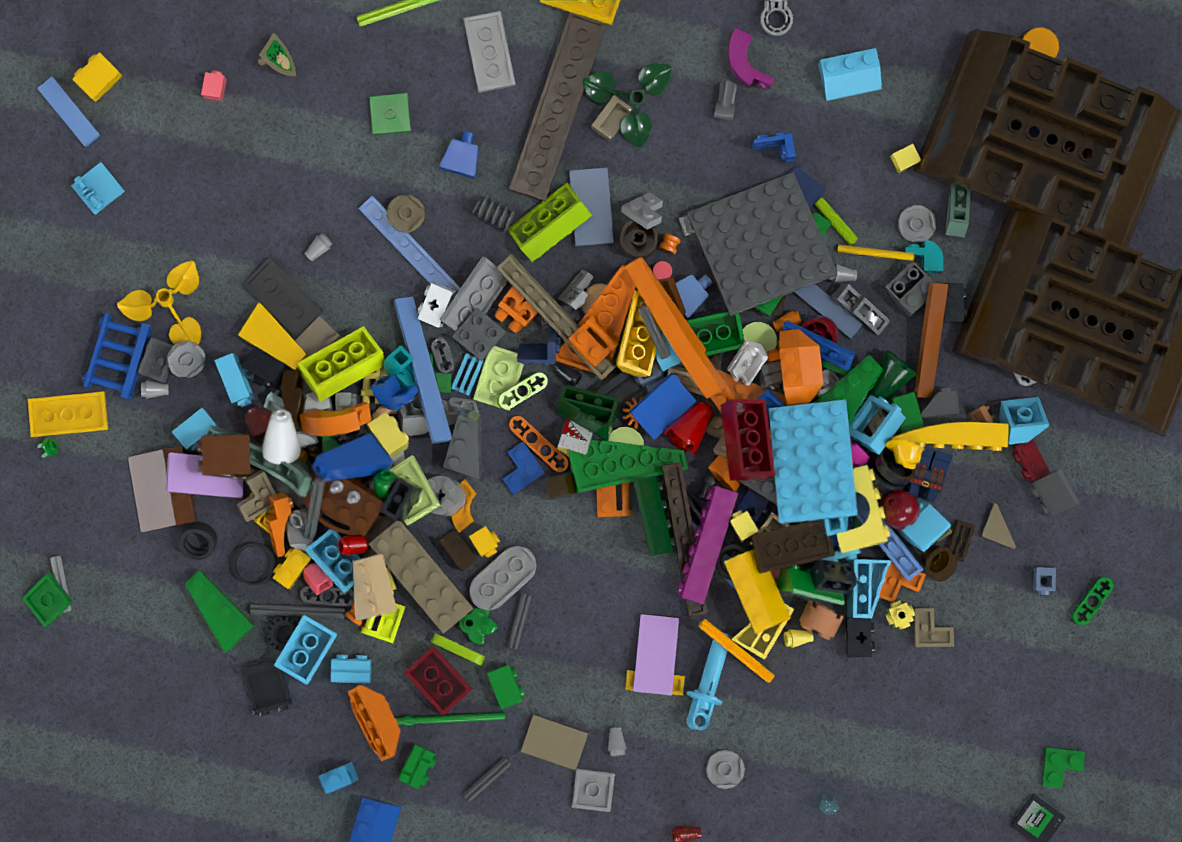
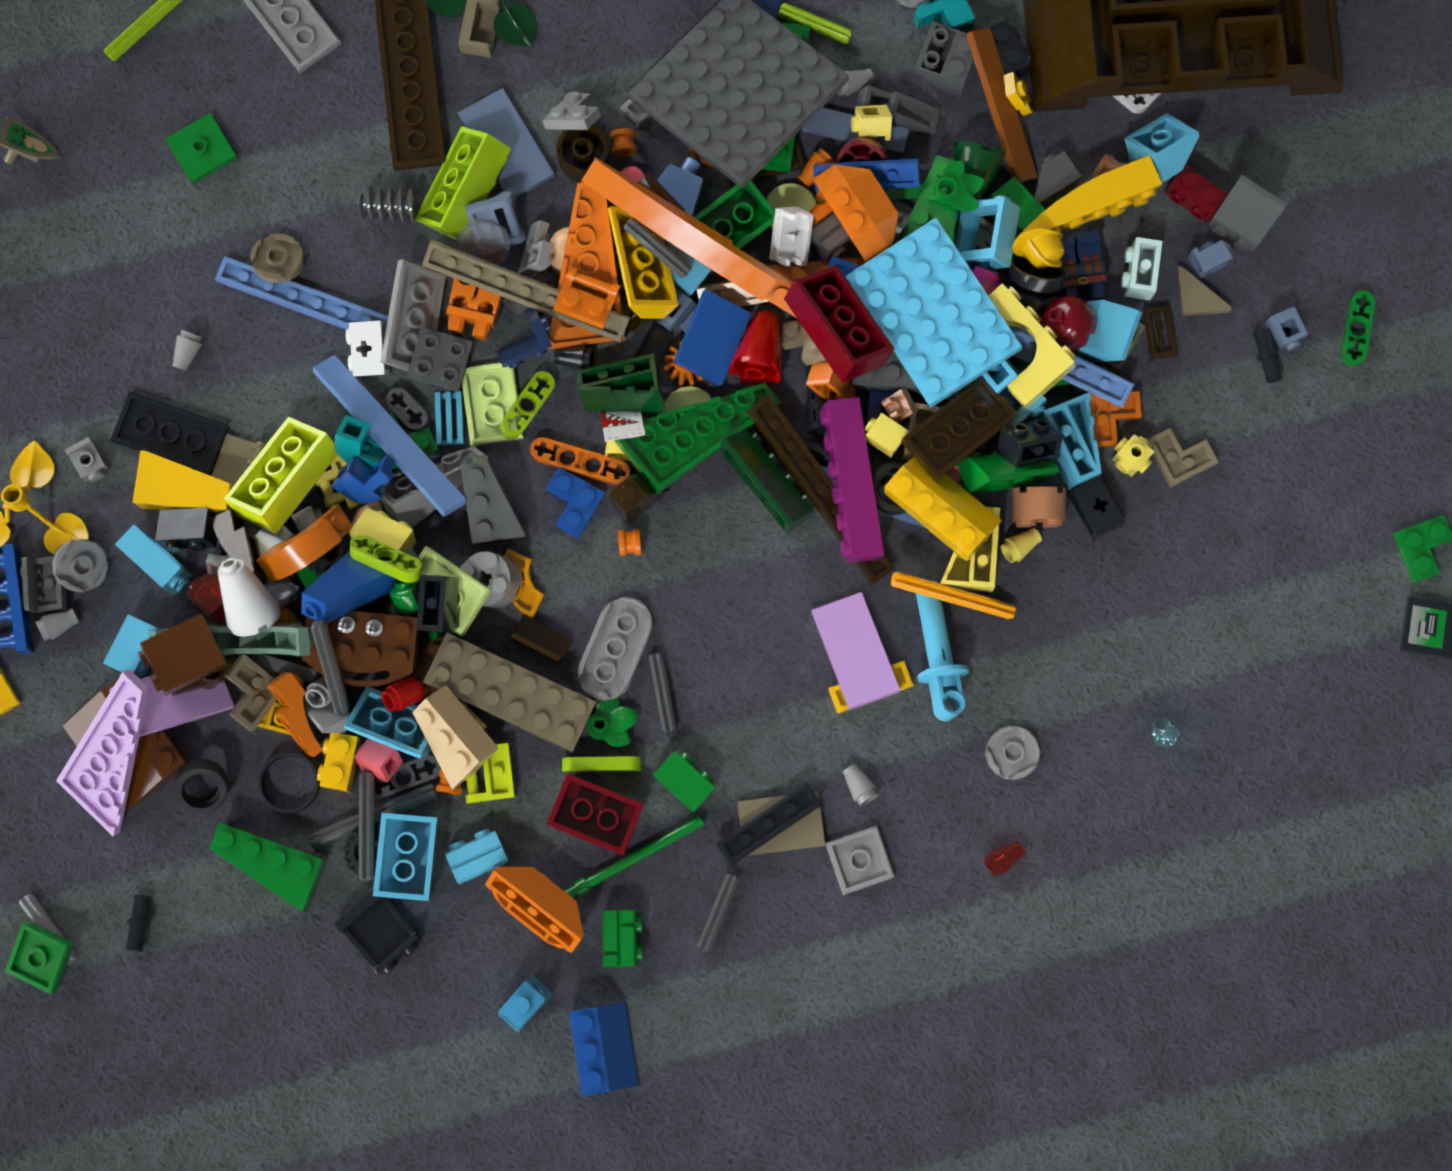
camera: 25 degrees left, 5 degrees down
(118, 608) = (138, 923): none -> black pin
(145, 495) = (105, 757): none -> lavender wing
(227, 297) = (95, 468): none -> light grey brick
(290, 618) = (366, 826): none -> dark grey axle
(379, 445) = (402, 566): none -> lime beam
(461, 156) = (315, 157): torso -> none
(485, 542) = (570, 611): yellow brick -> none
(544, 269) = (484, 240): none -> clear tile
(544, 513) = (629, 542): none -> orange wheel
(545, 739) = (768, 824): none -> black tile
(551, 260) = (486, 210): none -> sand blue plate
(607, 501) = (700, 491): orange plate -> none
(761, 511) = (899, 406): none -> nougat tile
(838, 311) = (872, 121): none -> light yellow brick
(873, 385) = (961, 187): none -> green plate
(876, 252) = (882, 35): yellow bar -> none
(939, 562) = (1148, 368): dark brown piece -> none
(945, 336) = (1017, 93): none -> yellow plate
(969, 494) = (1143, 268): none -> light aqua brick
(1019, 507) = (1210, 258): none -> sand blue brick
(1023, 590) = (1267, 355): none -> black pin

